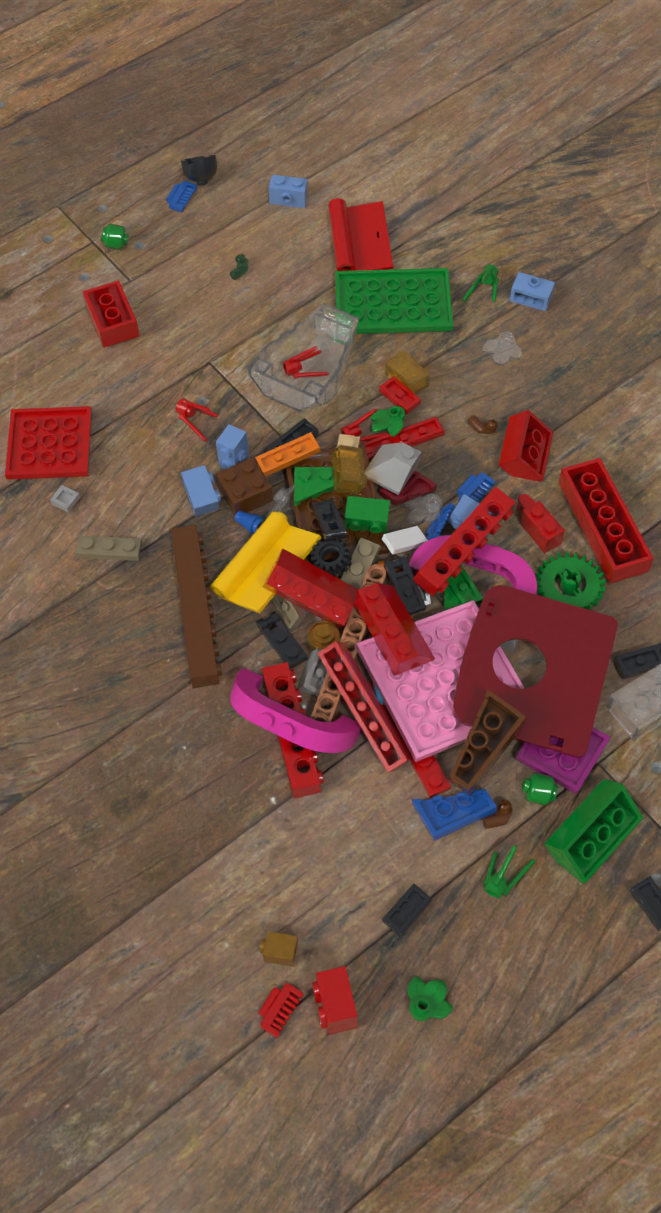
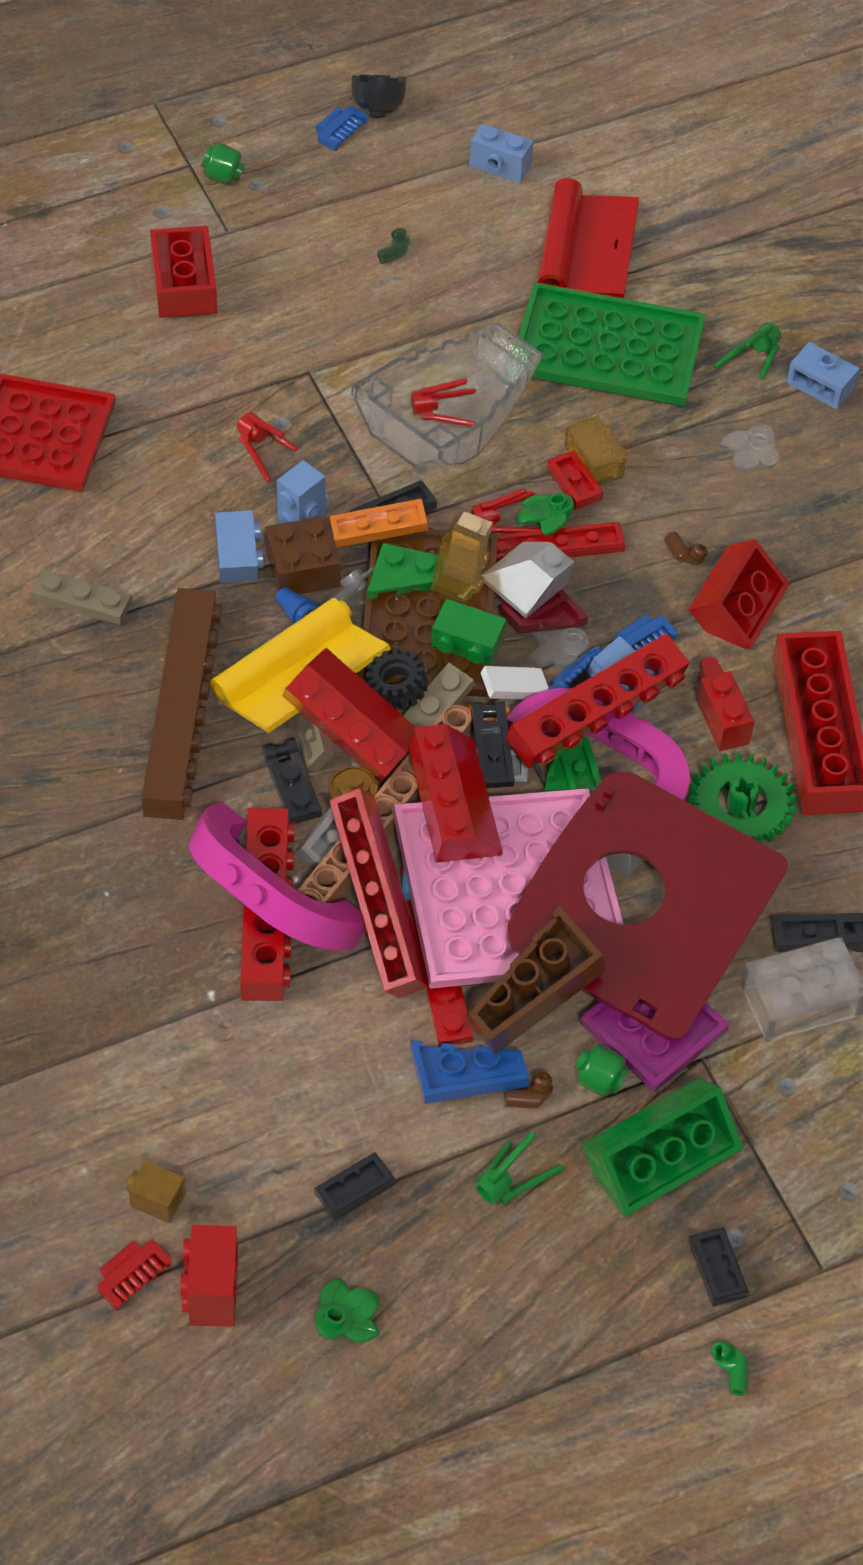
camera: 10 degrees right, 5 degrees down
(65, 498) = (39, 514): light grey plate -> none
(329, 520) = (409, 627): black plate -> none

